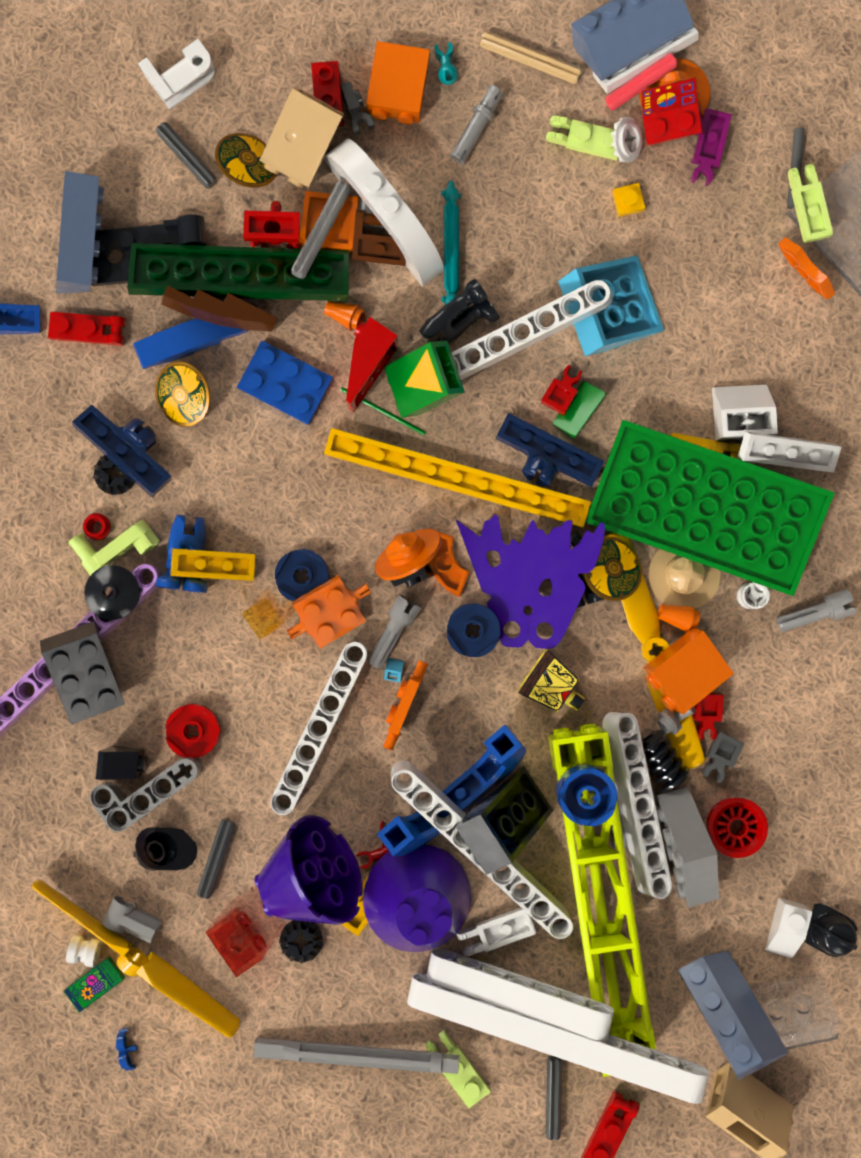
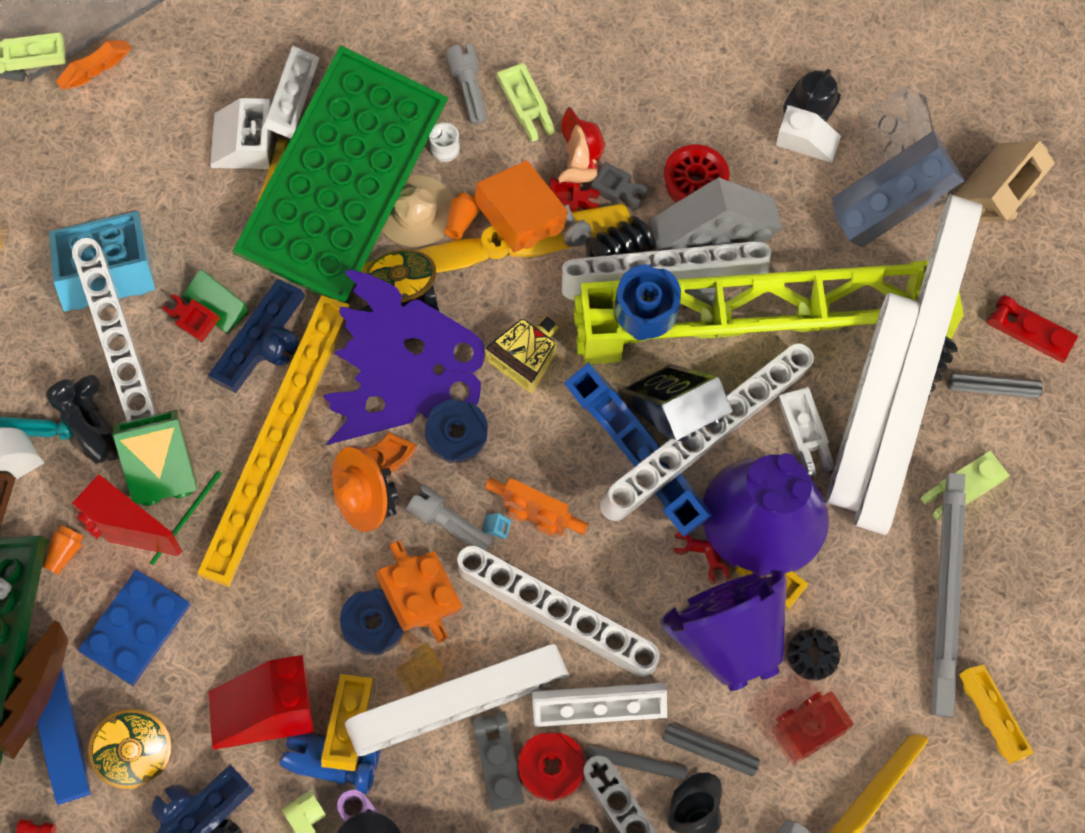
camera: 85 degrees left, 20 degrees down
(194, 688) = (498, 762): none -> dark grey plate
(201, 800) = (639, 763): none -> dark grey bar
(222, 494) = (262, 704): none -> red slope
(233, 651) = (455, 700): none -> white beam
(245, 767) = (599, 704): none -> white brick
(258, 1093) = (995, 714): none -> yellow plate
(758, 729) = (584, 148): none -> hair
(805, 665) = (525, 99): none -> yellowish green hinge

